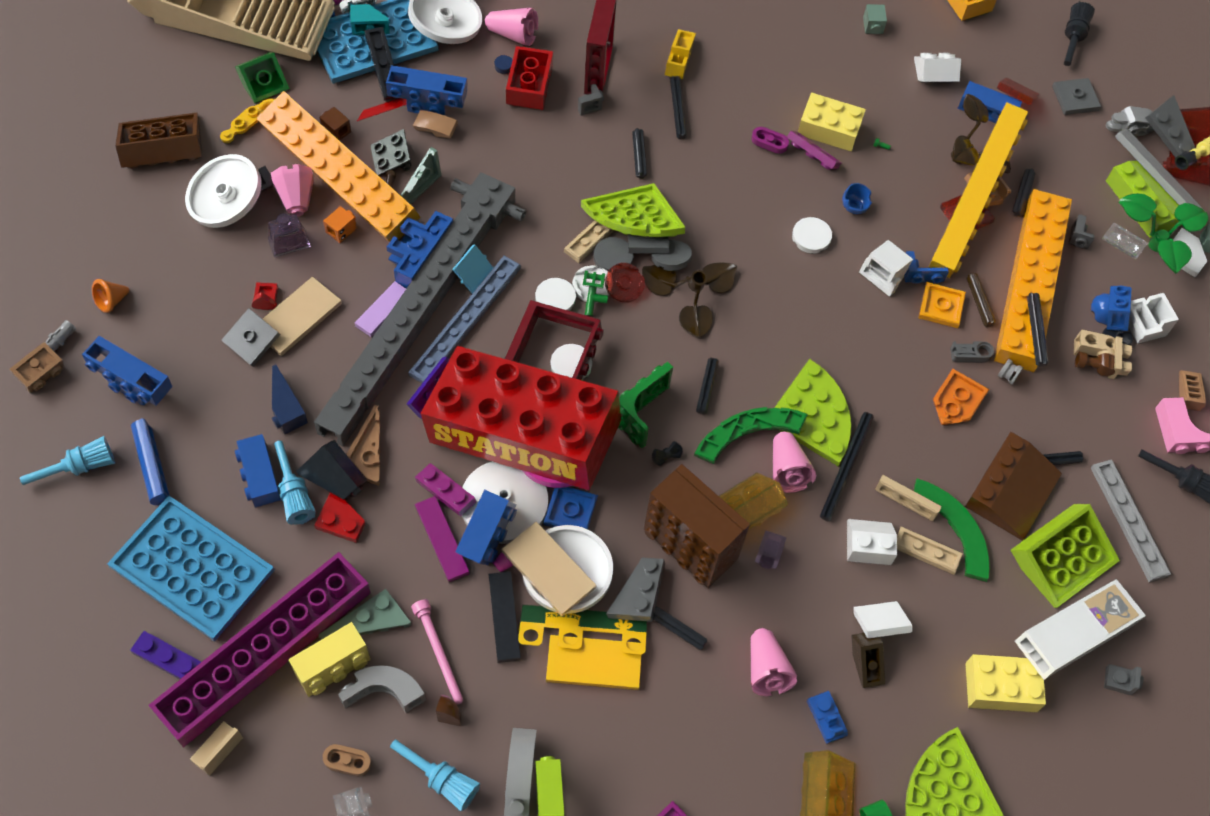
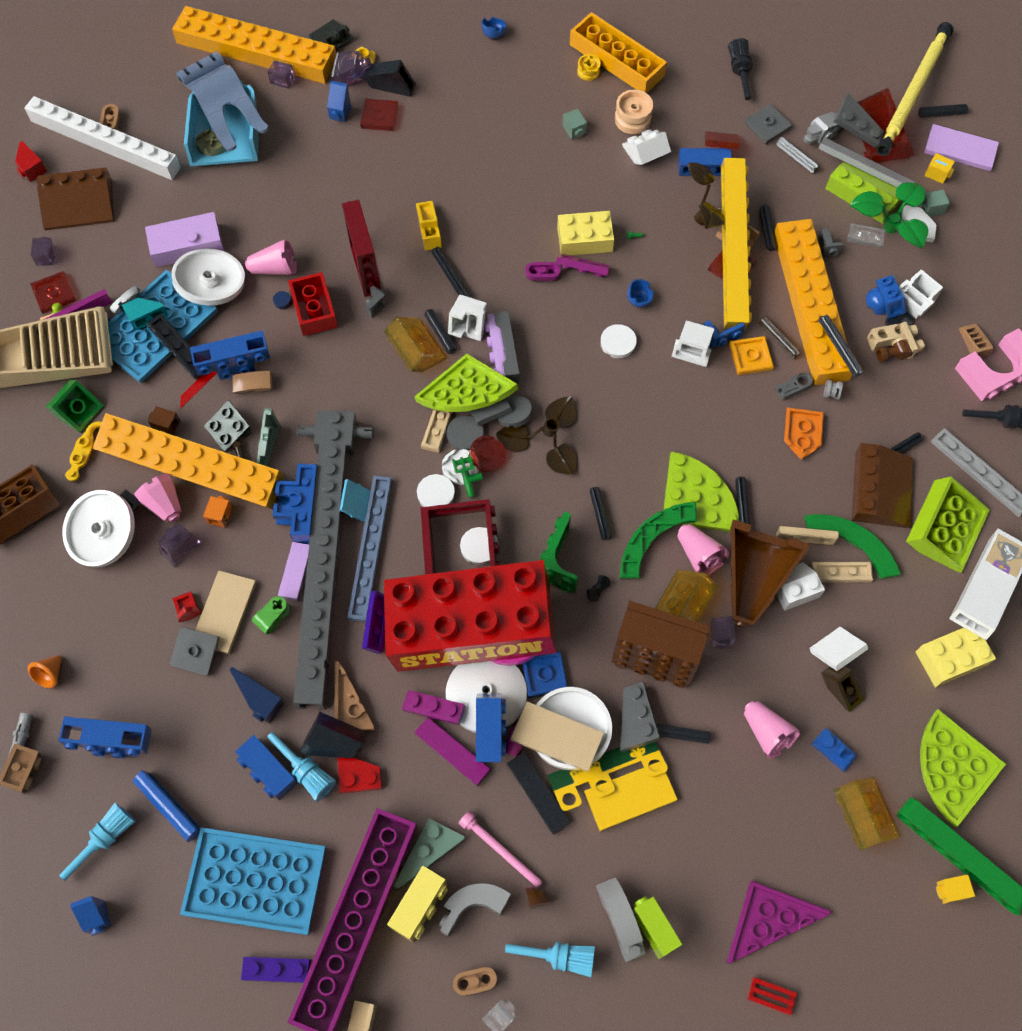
camera: 20 degrees left, 5 degrees up
(28, 524) = (91, 915): none -> blue slope
(338, 338) = (270, 616): none -> bright green piece
(608, 153) = (414, 343): none -> clear yellow slope
(671, 150) = (467, 318): none -> white plate
(692, 190) = (502, 345): none -> piece
(835, 503) = (758, 570): none -> reddish brown cone
(940, 29) = (633, 111): none -> light nougat wheel
(1092, 137) = (798, 155): none -> axle

